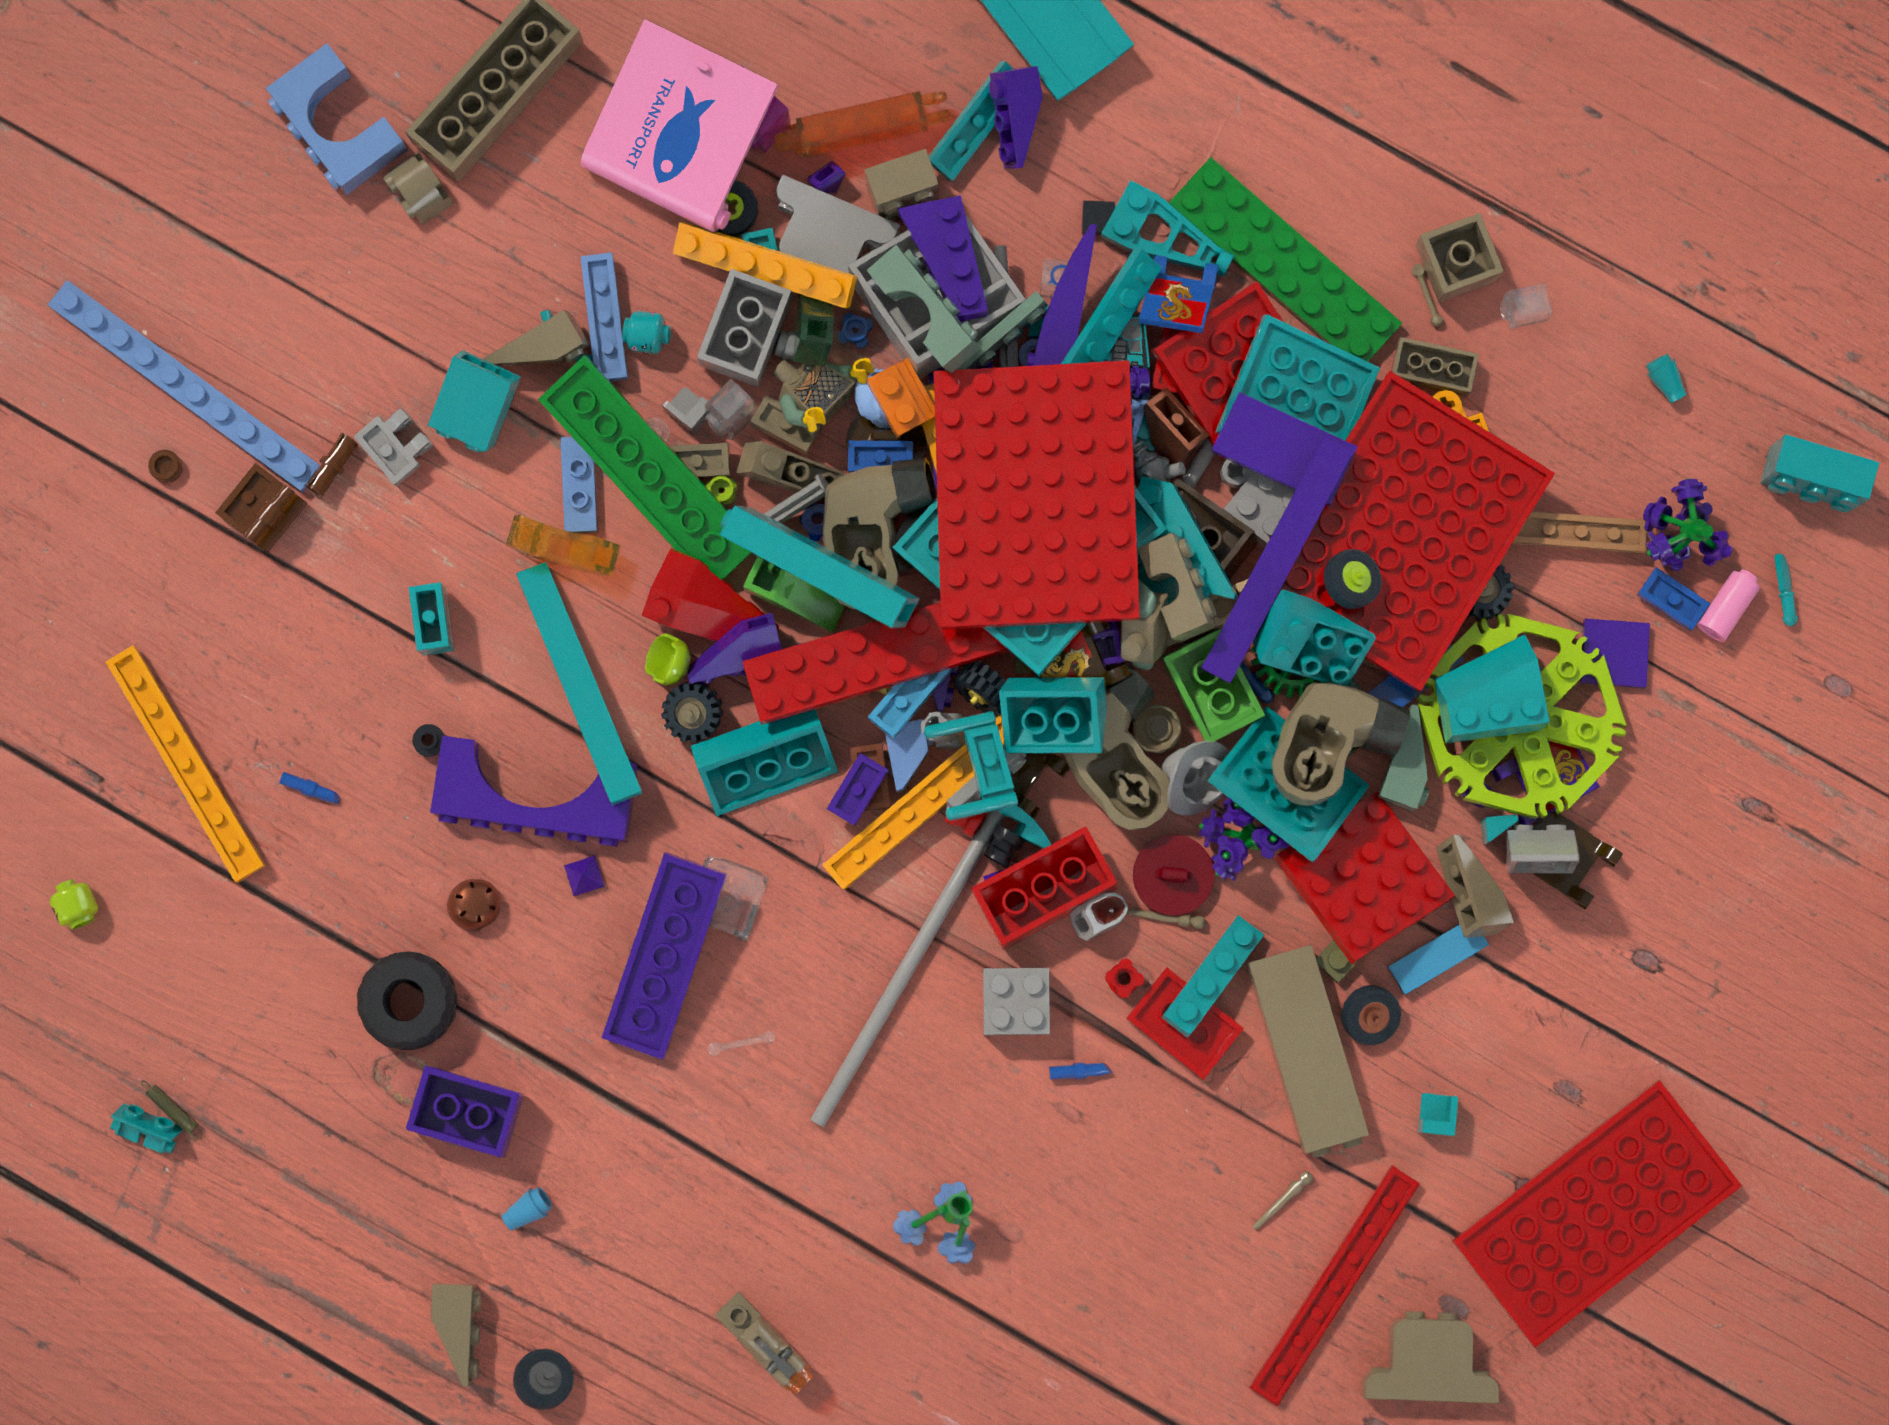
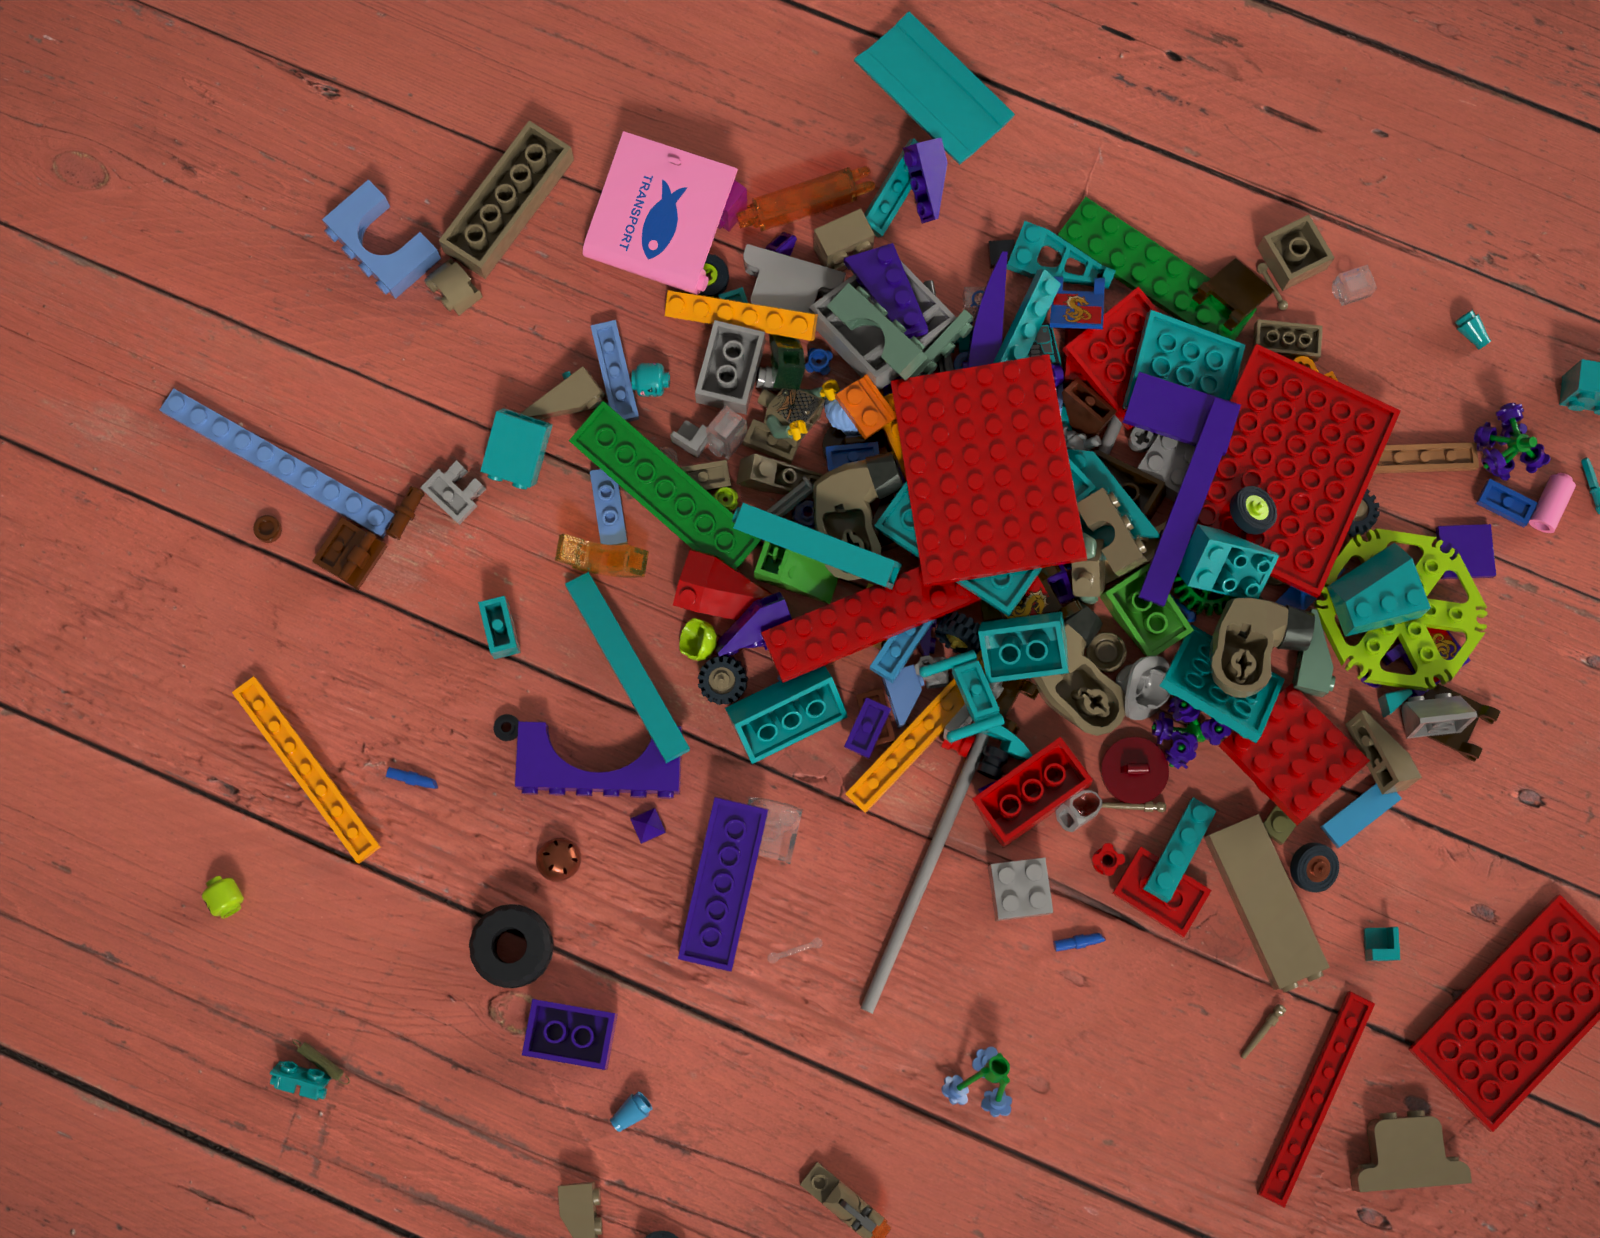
camera: 10 degrees left, 5 degrees down
(1380, 296) = (1237, 290): none -> dark brown flag

